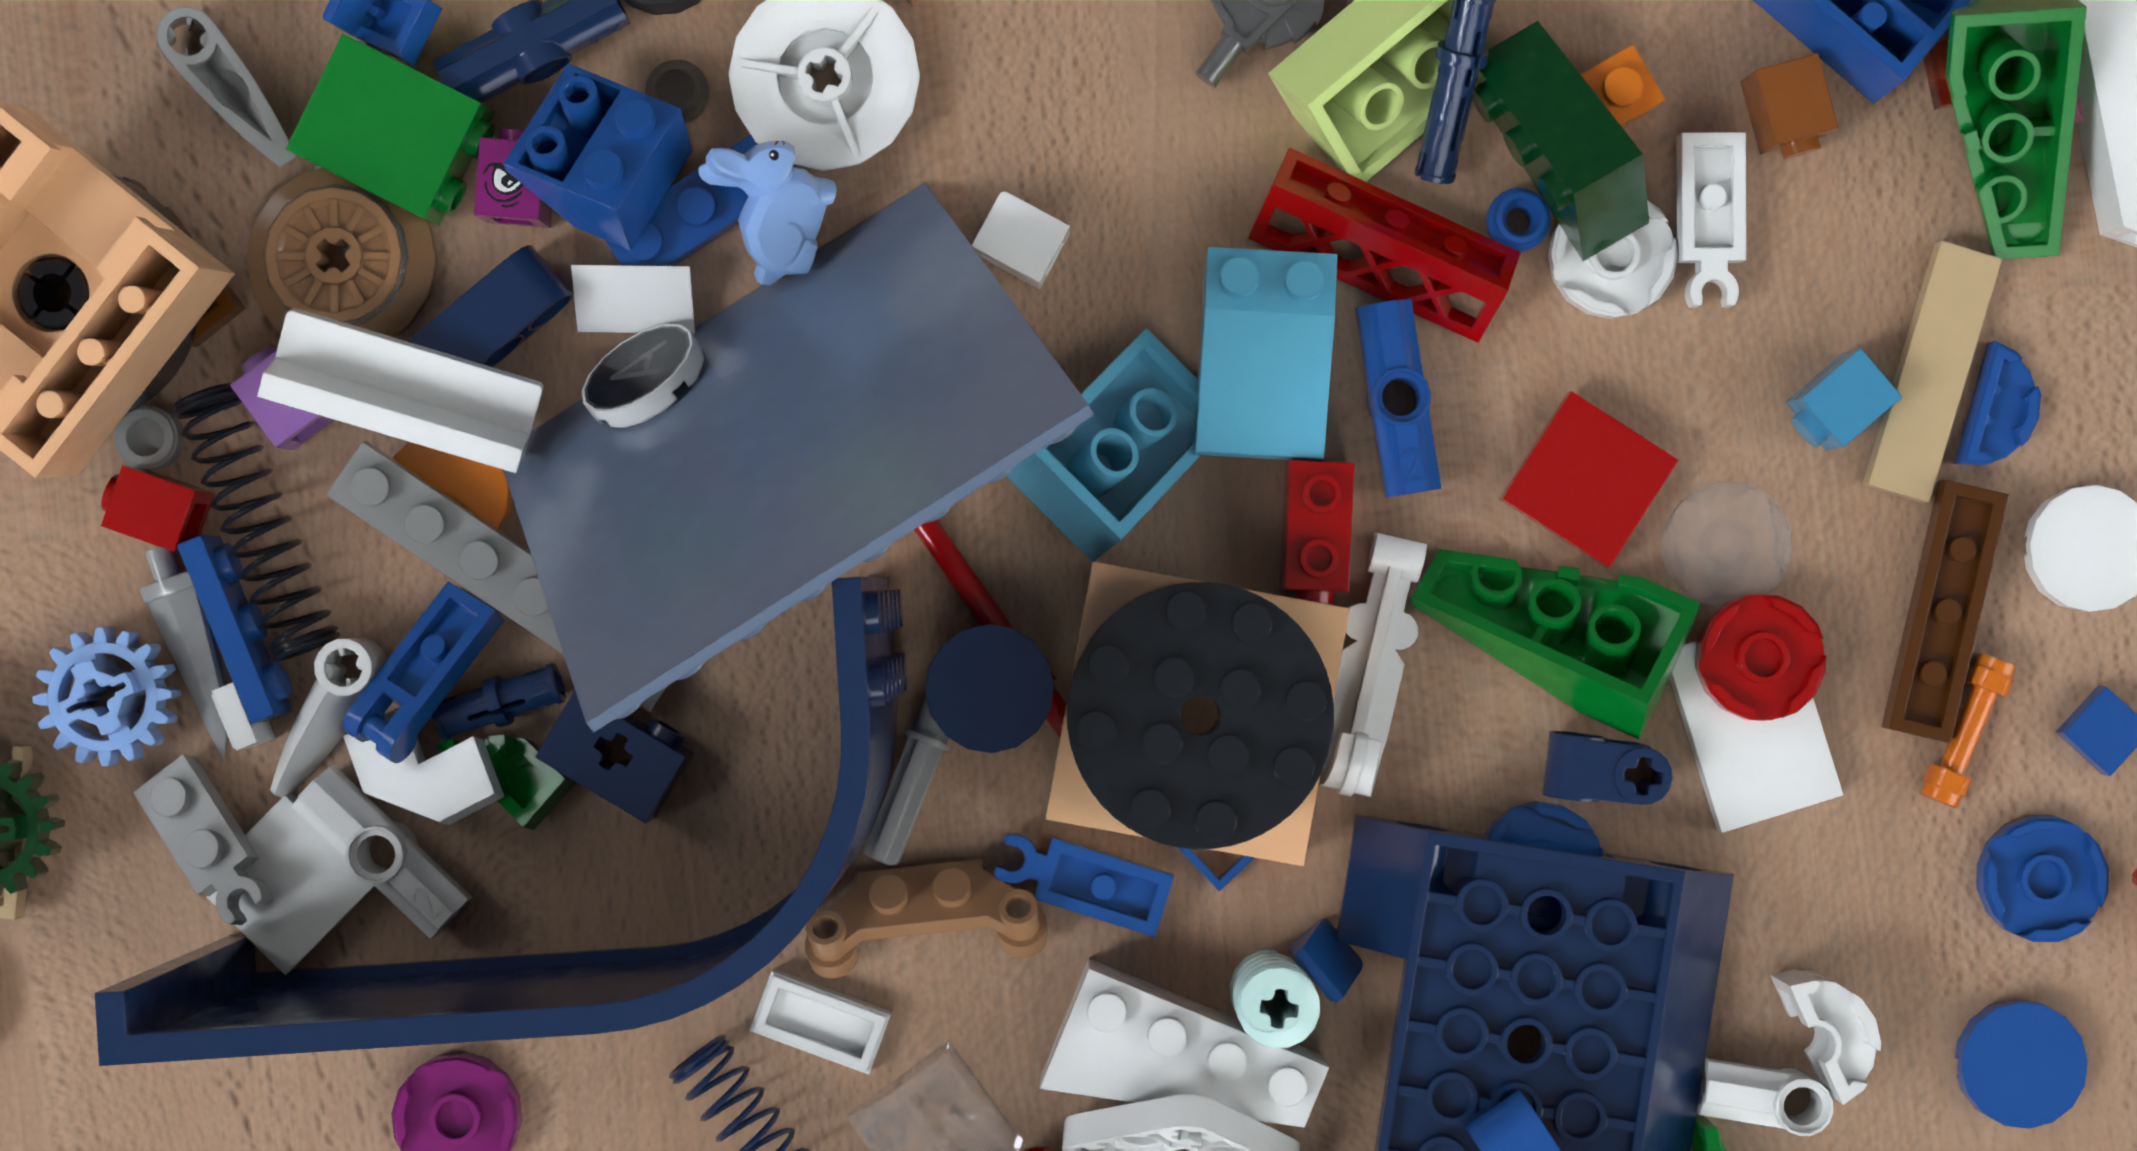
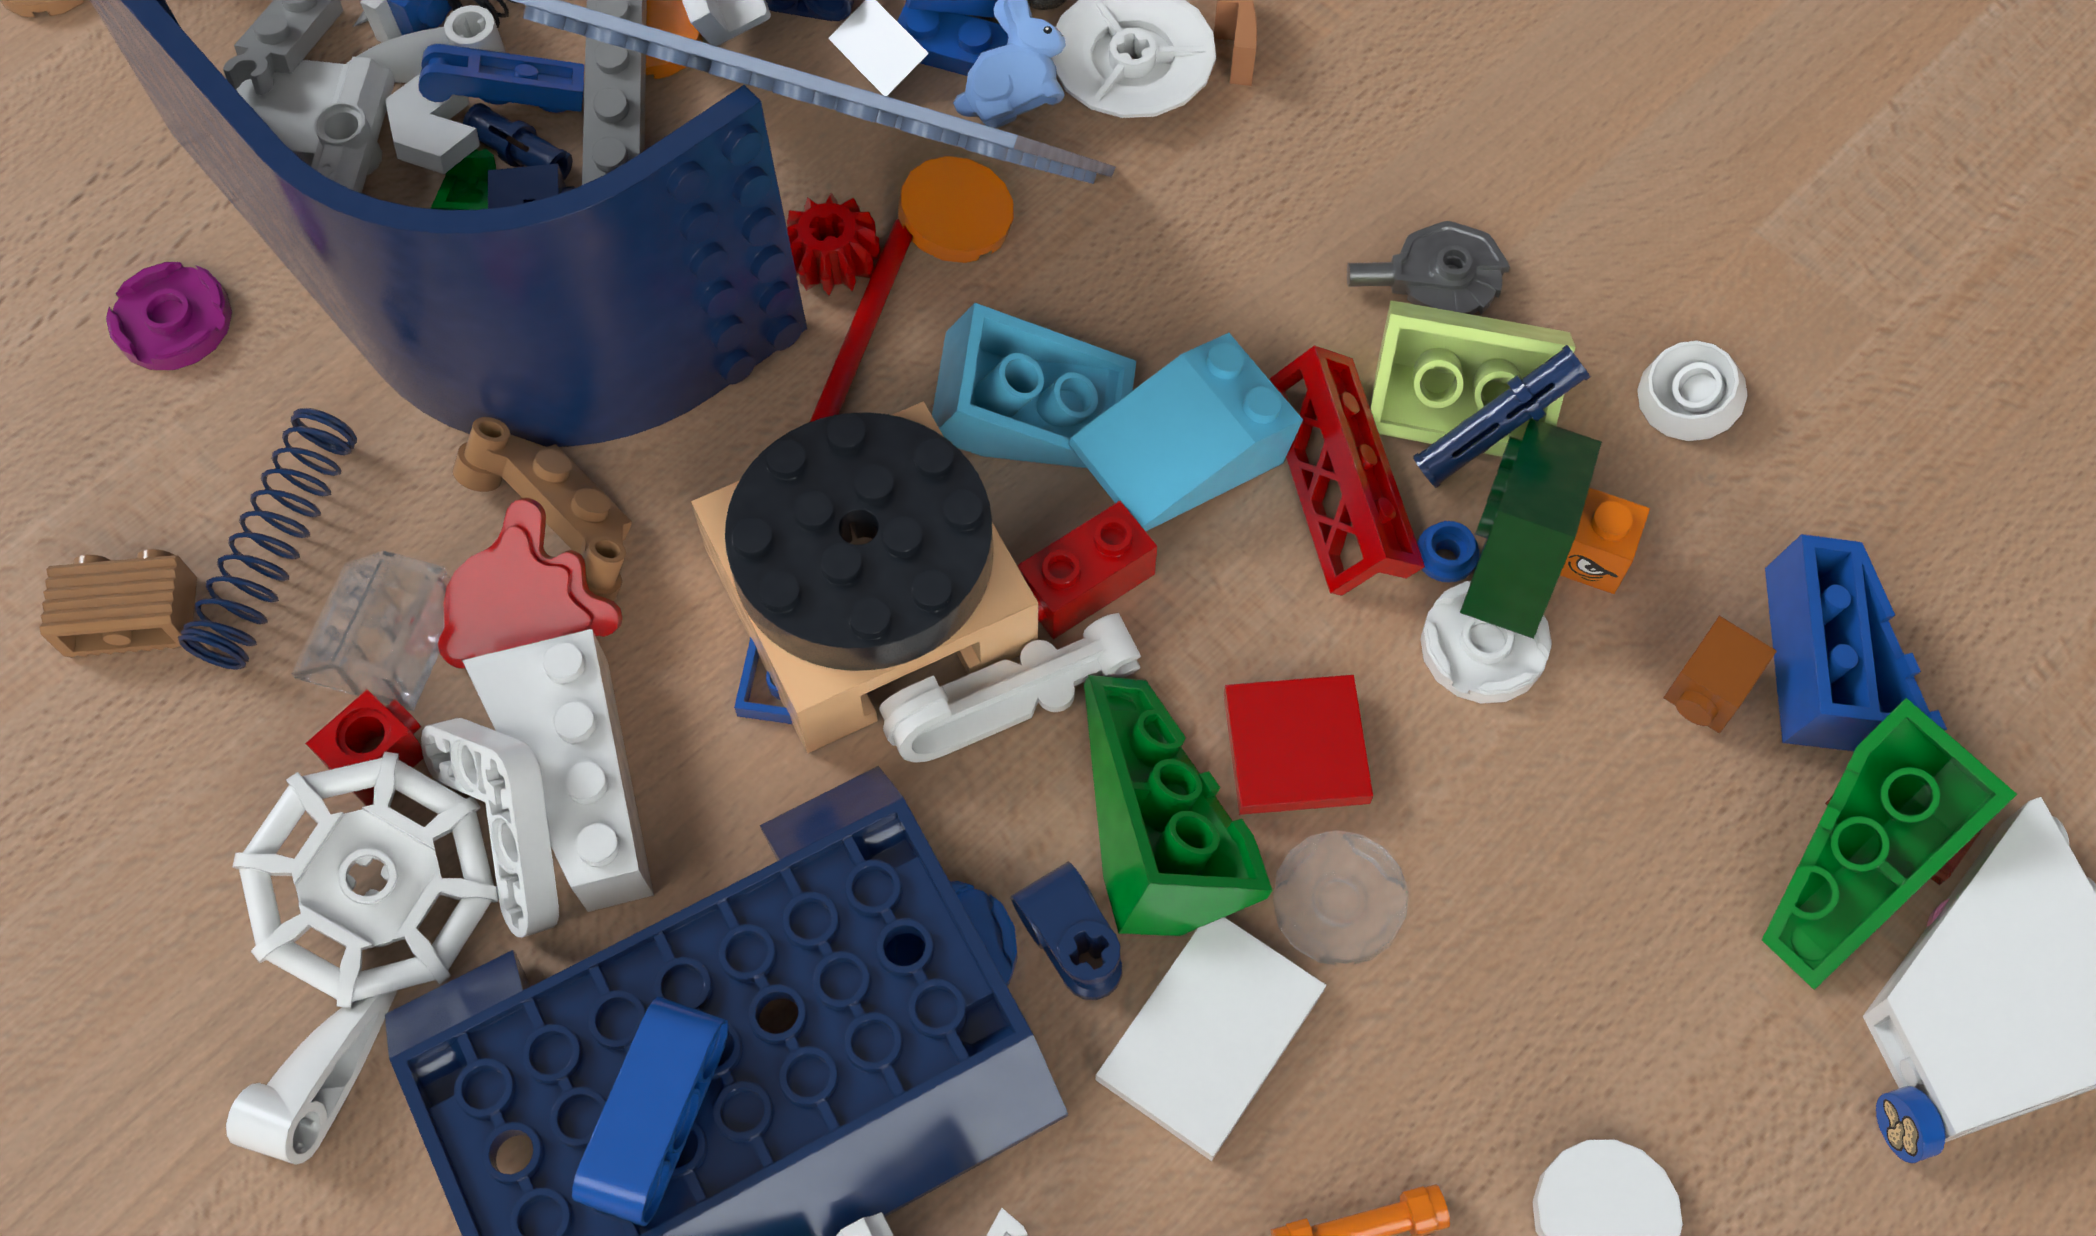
camera: 50 degrees right, 25 degrees down
(641, 374) = (825, 66): tile -> none
(820, 1021) = (416, 501): white tile -> none
(907, 788) = (668, 428): light grey axle -> none
(989, 688) = (759, 409): dark blue tile -> none
(1007, 1006) = (520, 593): none -> tile
(1021, 239) = (1127, 235): white panel -> none
(1092, 882) = (670, 609): blue plate -> none
(1291, 1017) = (668, 788): light aqua piece -> none
(1326, 960) = (733, 829): blue slope -> none
(1388, 356) = (1214, 581): blue piece -> none
(1711, 210) = (1585, 681): white plate -> none
(1760, 657) = (1271, 986): red tile -> none
(1841, 401) = (1535, 891): dark azure brick -> none
(1932, 371) = (1624, 957): tan tile -> none
(1945, 610) = (1441, 1121): reddish brown plate -> none
(2001, 409) = (1649, 1042): blue tile -> none

